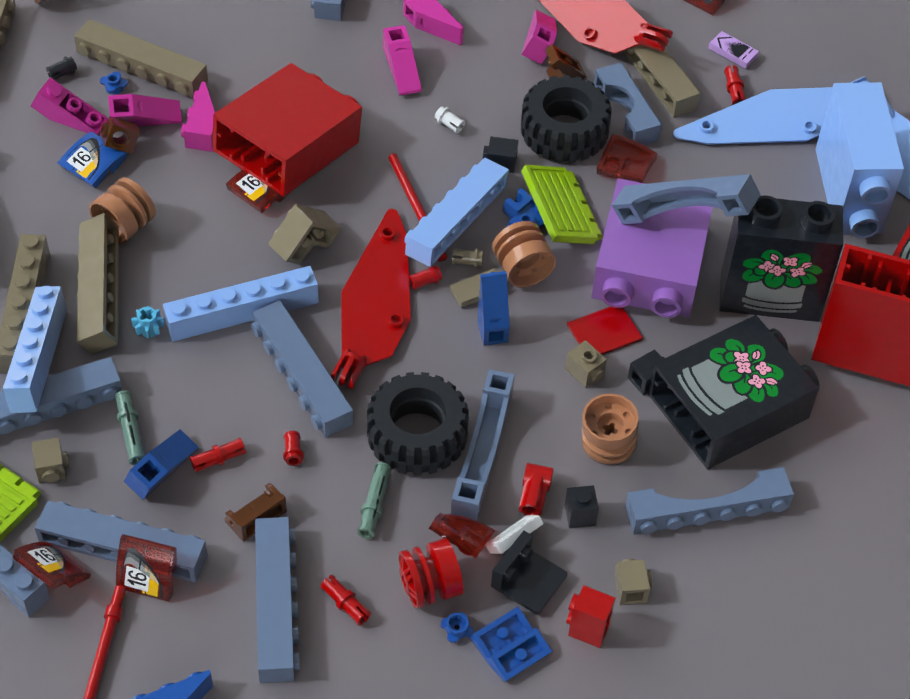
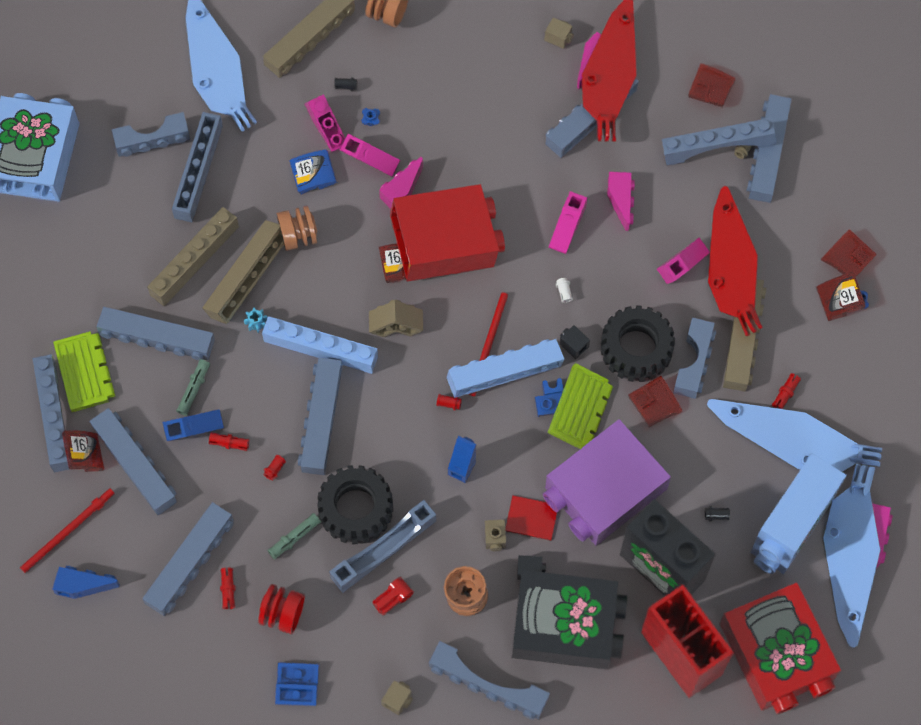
camera: 40 degrees right, 15 degrees up
(35, 350) = (172, 298): light blue brick -> none
(49, 460) = (132, 379): dark tan brick -> none
(126, 141) = (339, 166): reddish brown brick -> none
(140, 58) = (400, 108): dark tan brick -> none
(146, 567) = (130, 490): clear red slope -> none
(268, 505) = (221, 495): reddish brown hinge -> none
(375, 302) = (404, 397): red wing -> none
(457, 619) = (270, 654): blue plate -> none
(462, 532) = (322, 595): clear red plate -> none
(467, 291) = (477, 431): dark tan tile -> none
(469, 257) = (486, 403): dark tan pin -> none
(505, 539) = (354, 617): white tile -> none
(524, 254) = (519, 430): nougat wheel -> none
(527, 575) = (340, 649): black bracket -> none
(562, 64) = (677, 298): reddish brown slope -> none
(581, 506) = (408, 628): black brick -> none
(590, 616) = (349, 702): red brick -> none
(732, 194) = (641, 498): sand blue arch -> none
(733, 49) = (814, 361): lavender tile -> none

